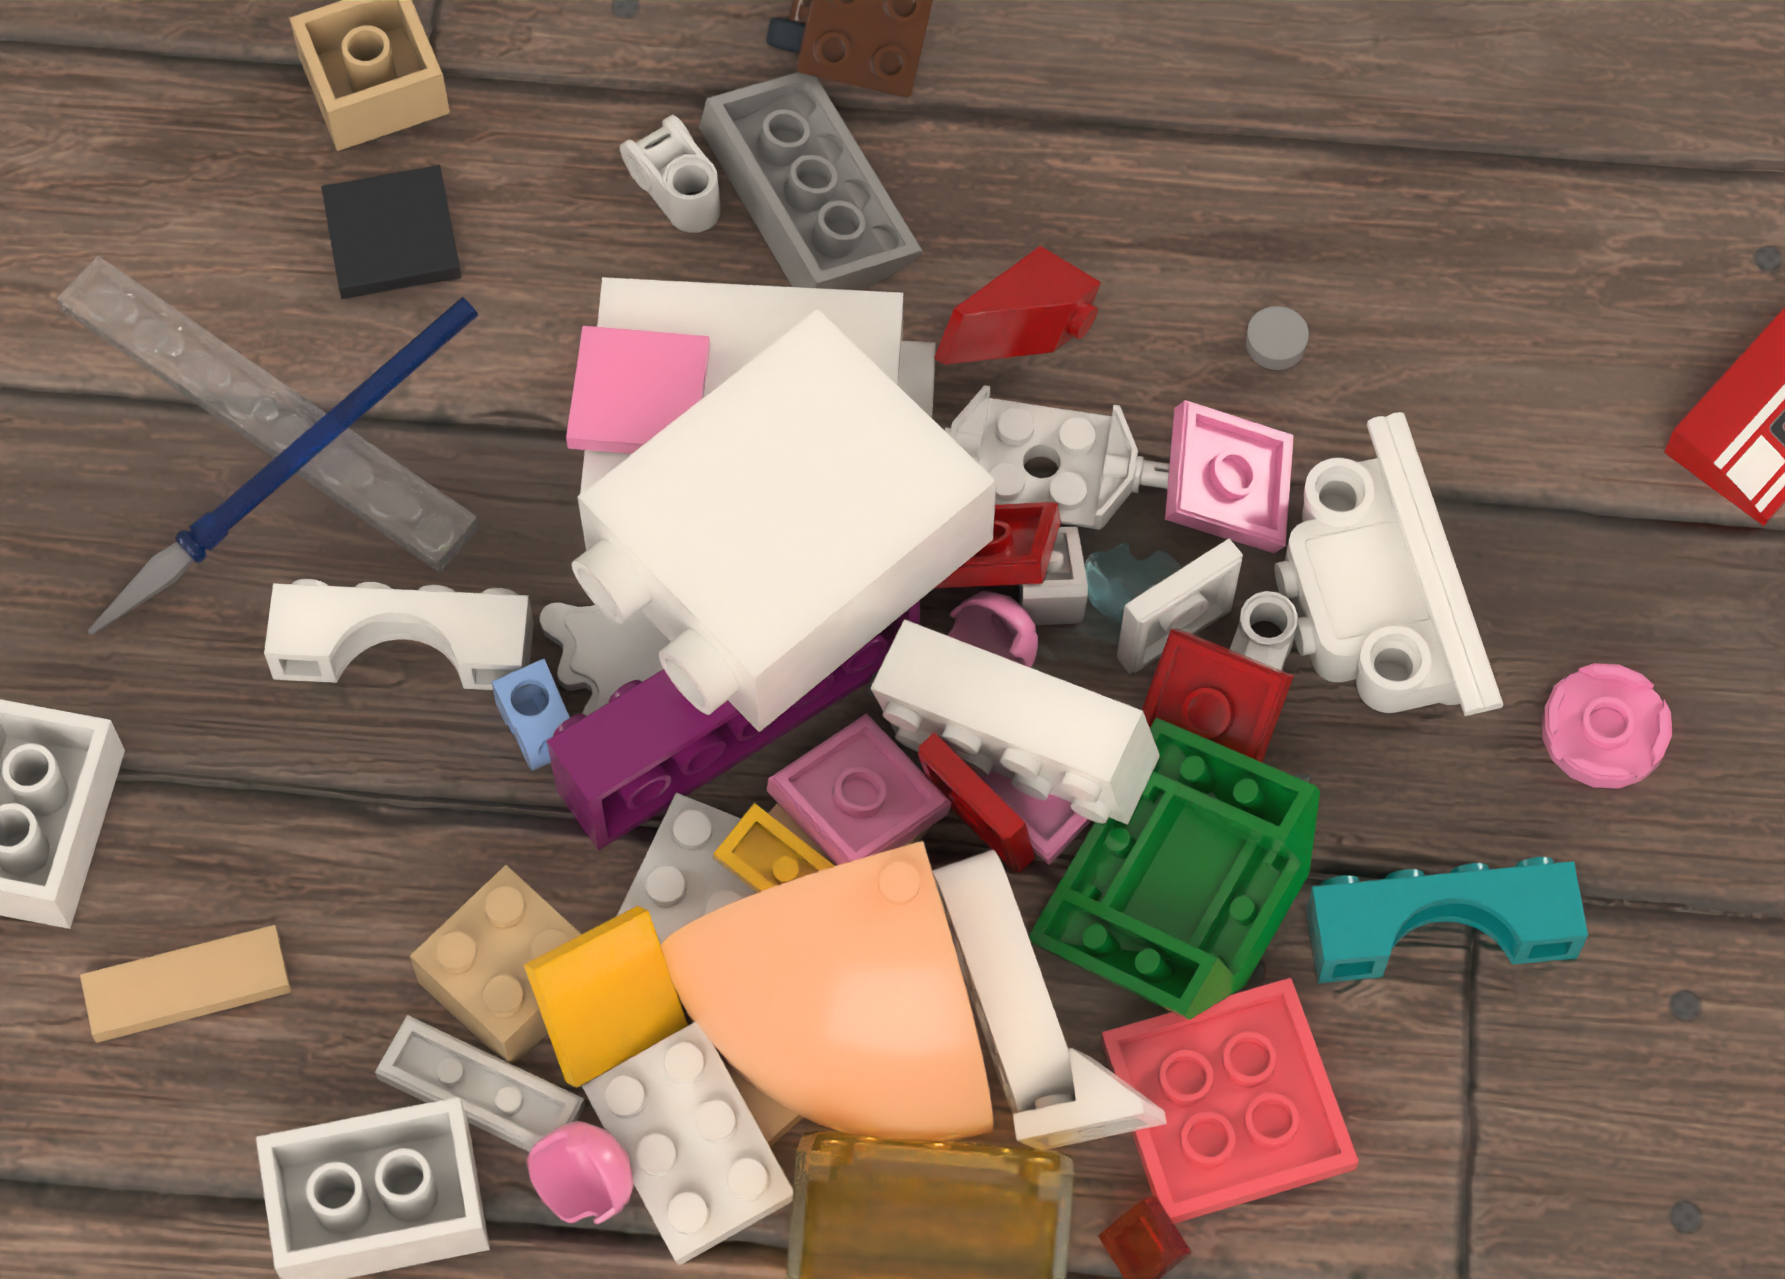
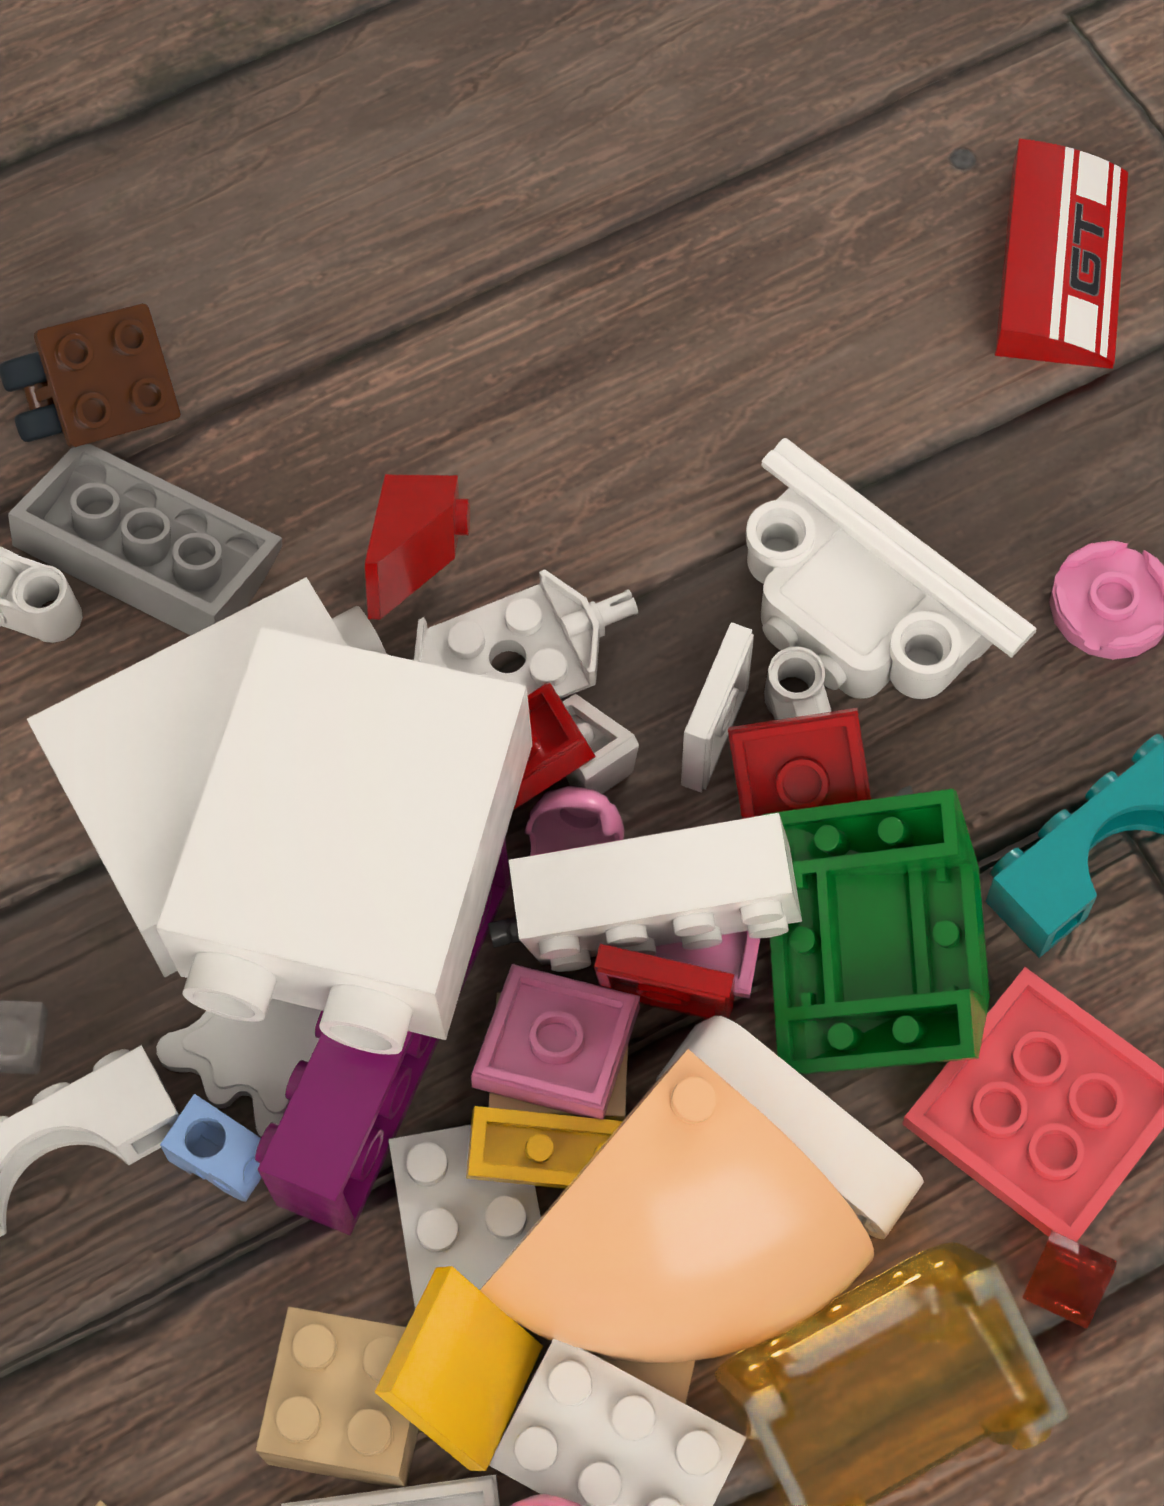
camera: 30 degrees left, 0 degrees up
(633, 386) = (126, 800): bright pink tile -> none
(1101, 1109) = (959, 1178): white slope -> none
(1119, 577) = (658, 713): clear light blue hair -> none
(1229, 477) = (674, 576): bright pink tile -> none
(1277, 338) = (628, 440): light grey tile -> none

